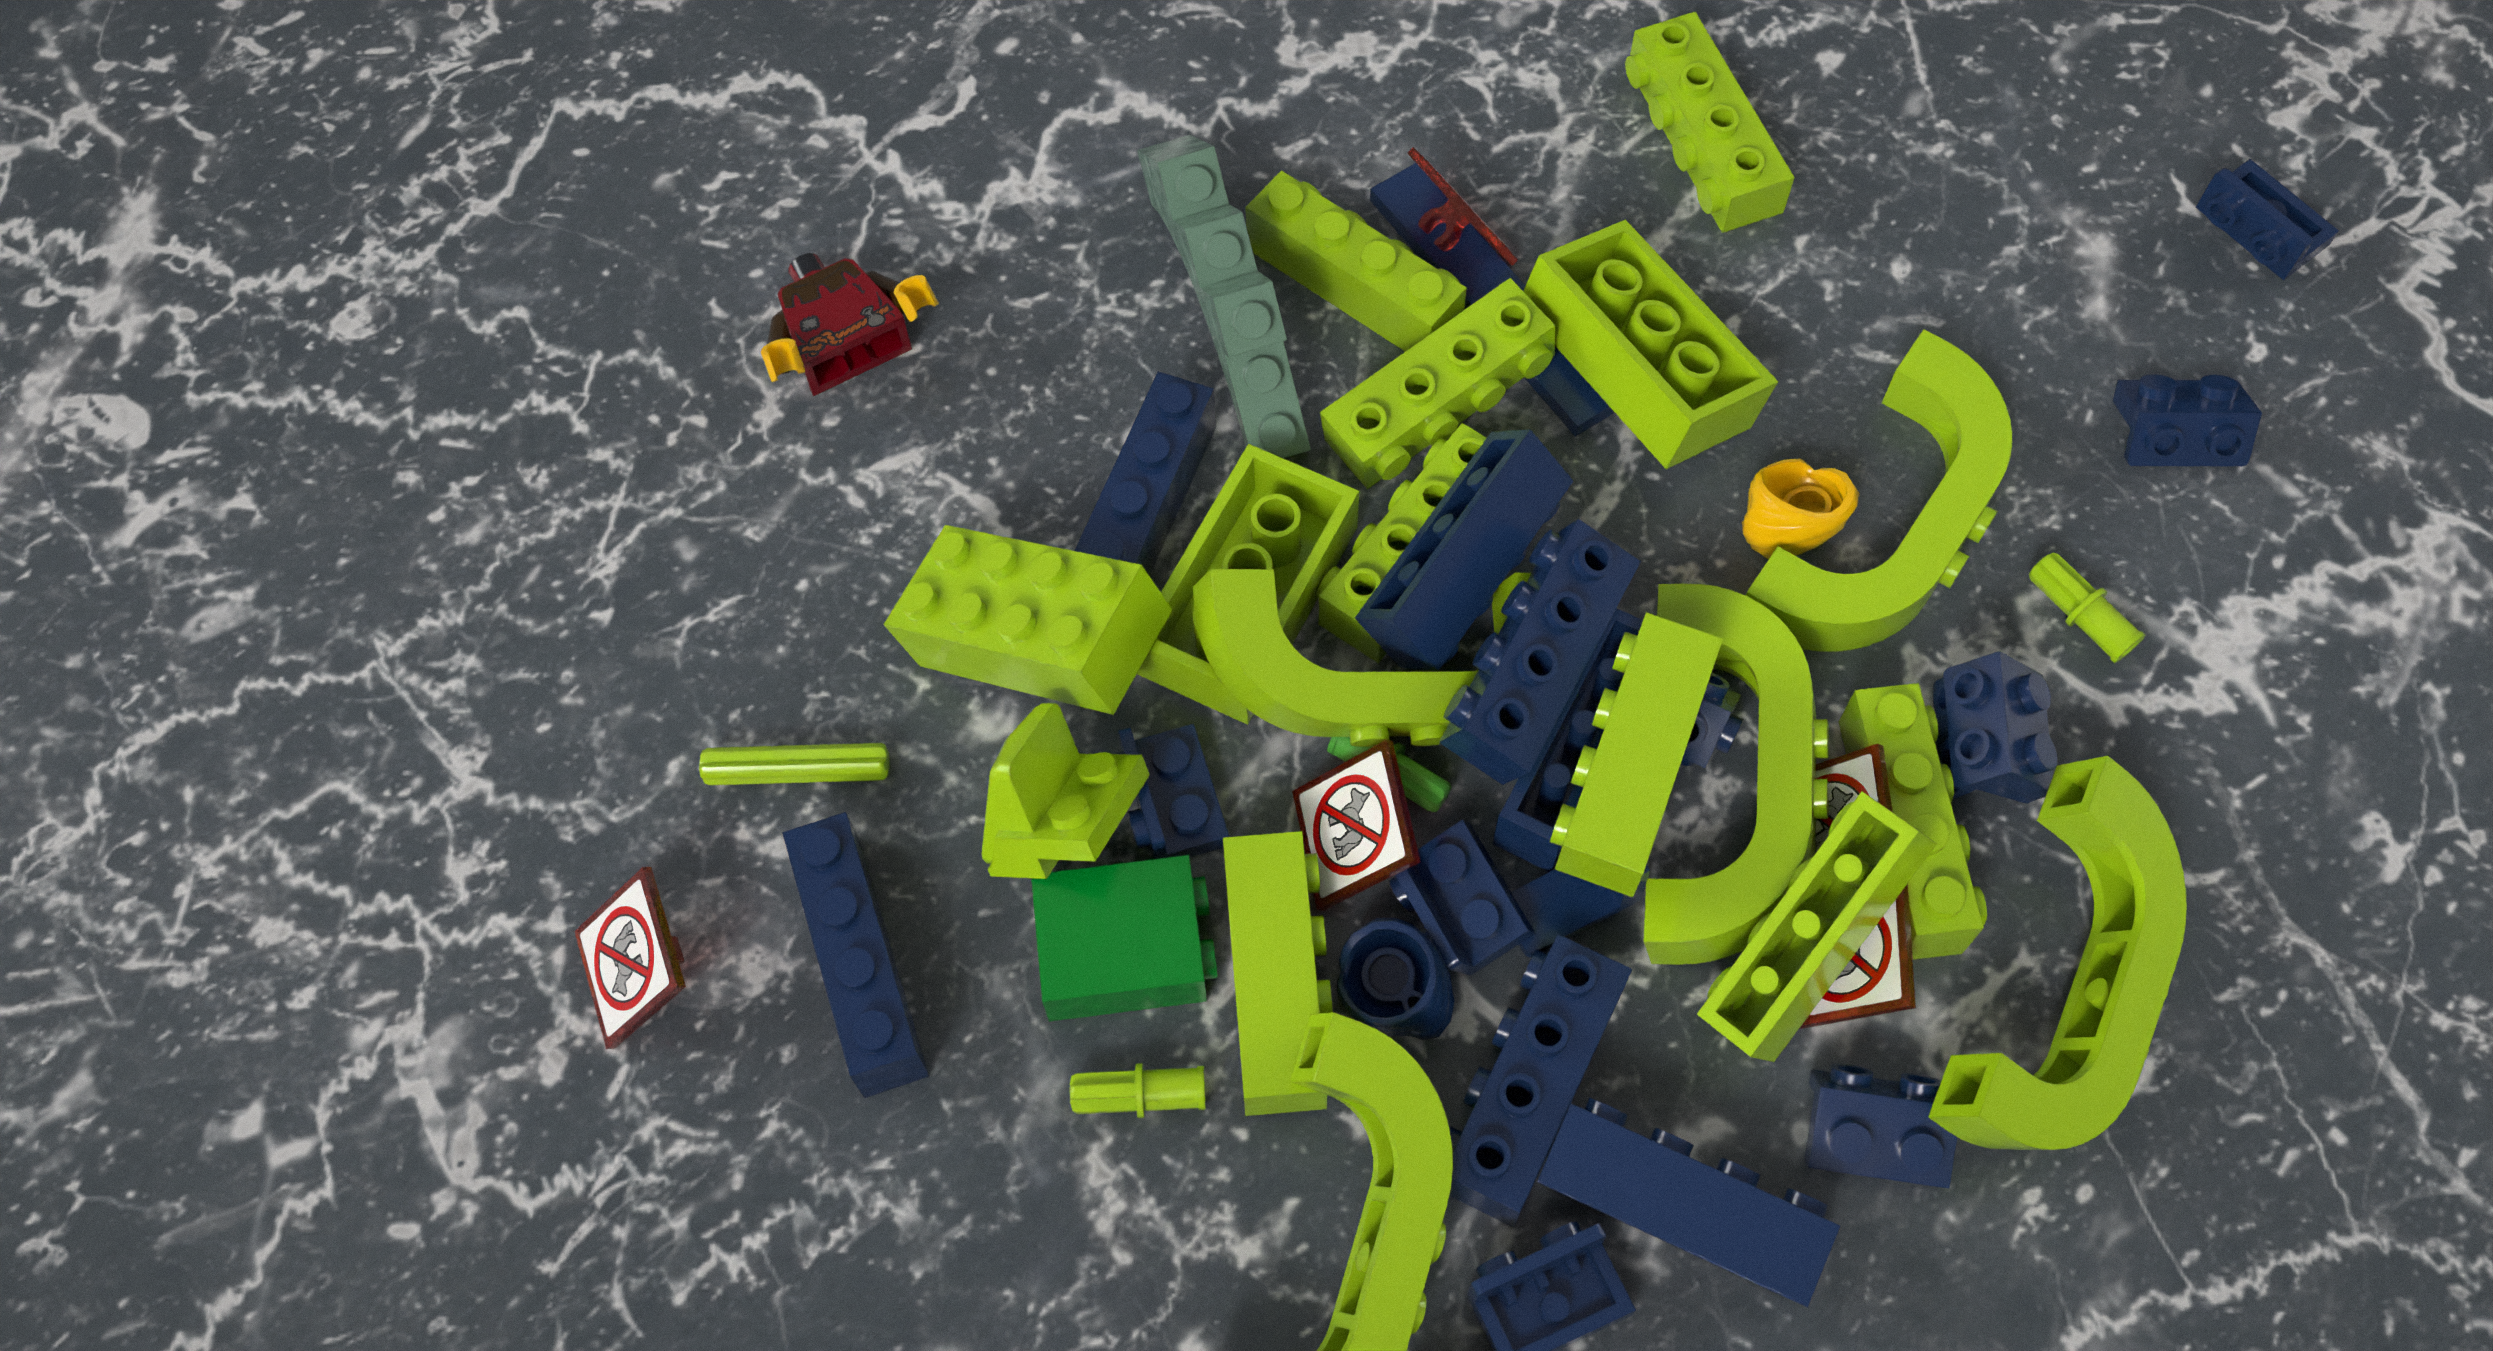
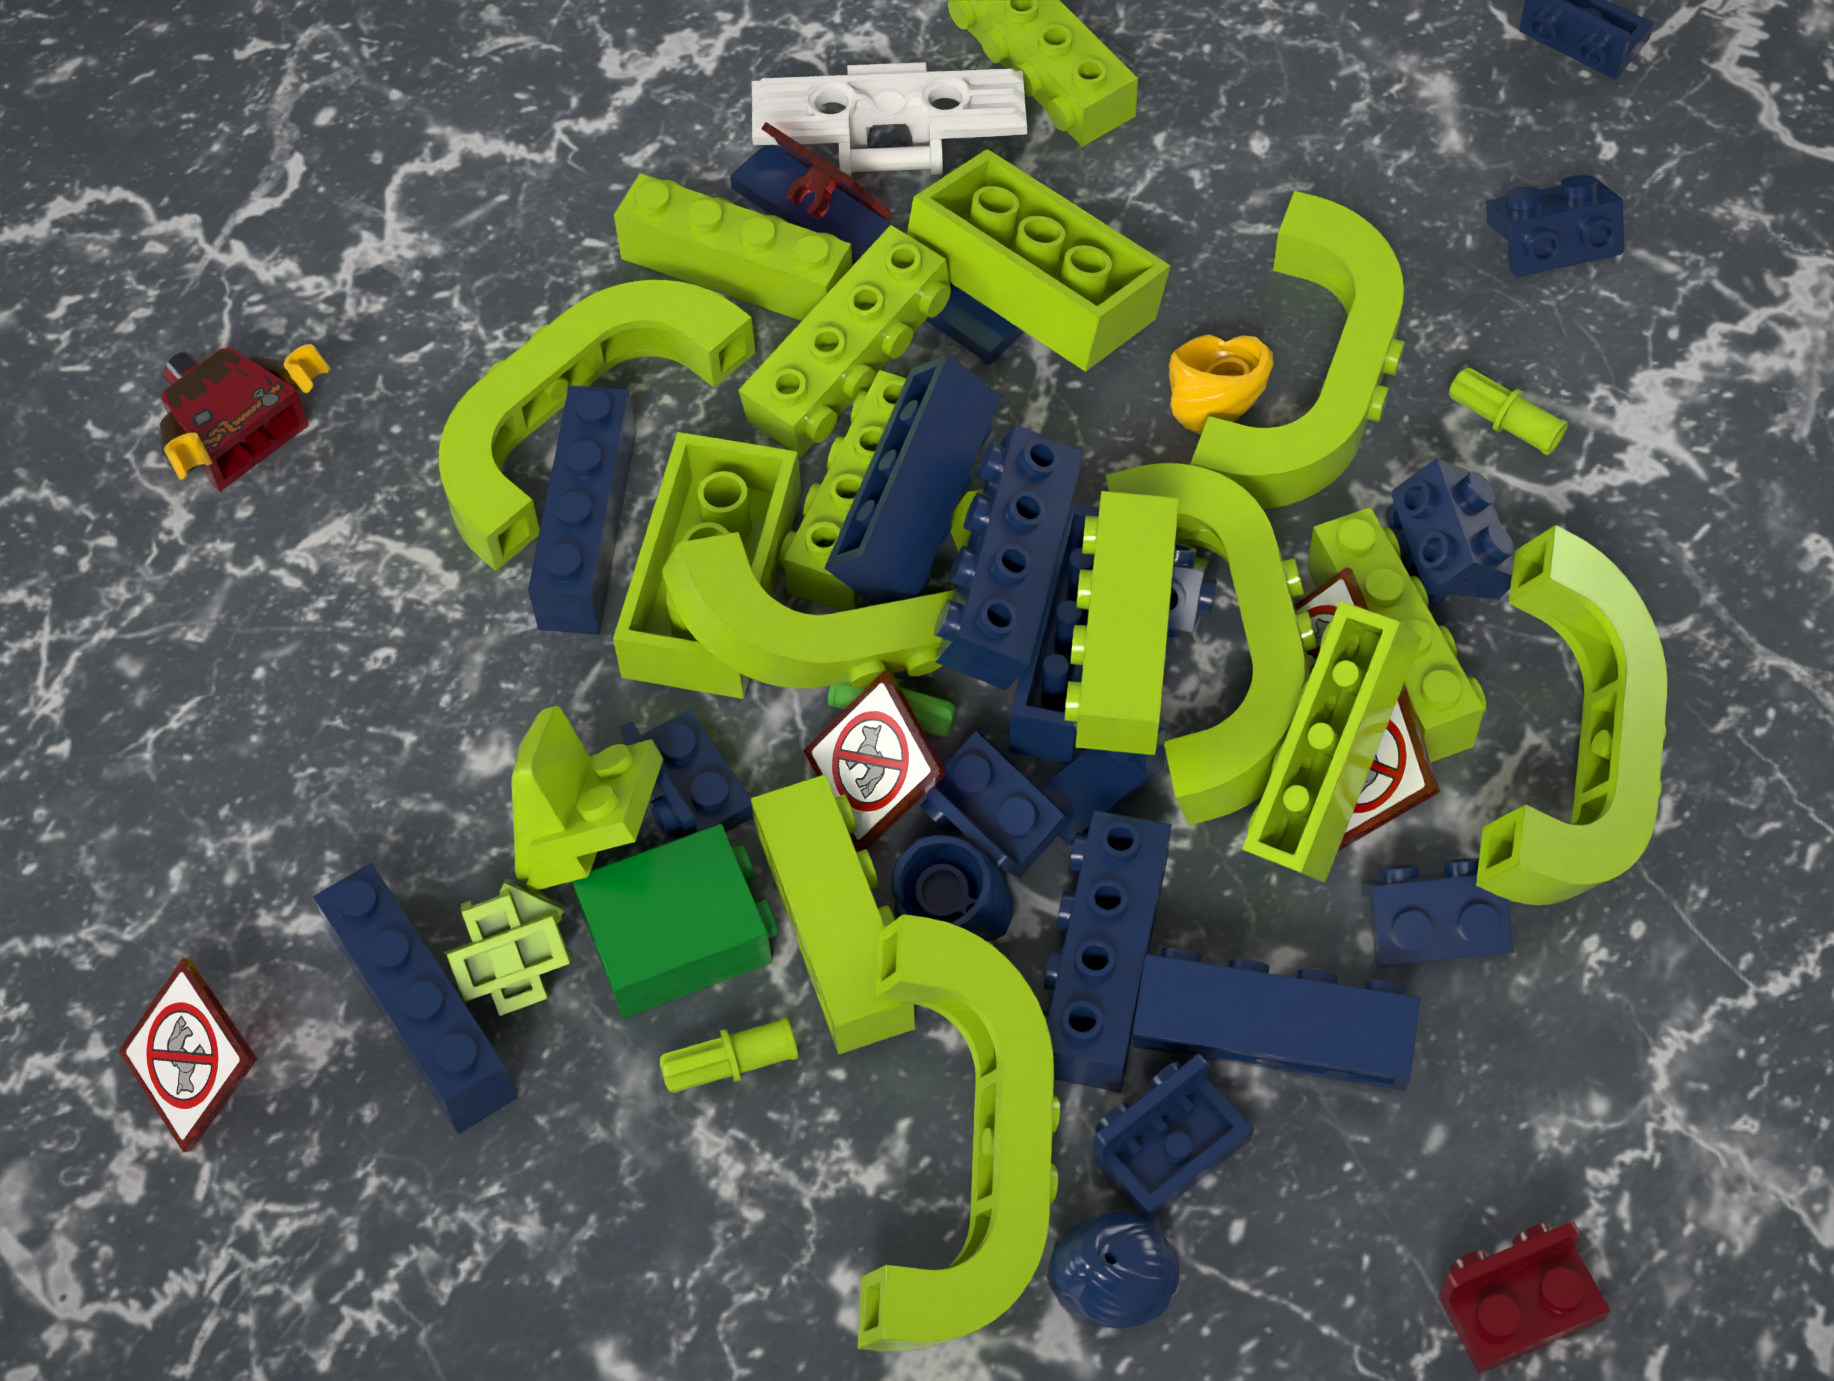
camera: 15 degrees left, 5 degrees down
(794, 764) = (300, 840): lime axle -> none
(938, 937) = (496, 959): none -> lime piece
(1030, 617) = (504, 640): lime brick -> none
(1123, 363) = (532, 385): none -> lime arch
(1233, 294) = (632, 303): sand green arch -> none
(1545, 142) = (890, 94): none -> white piece

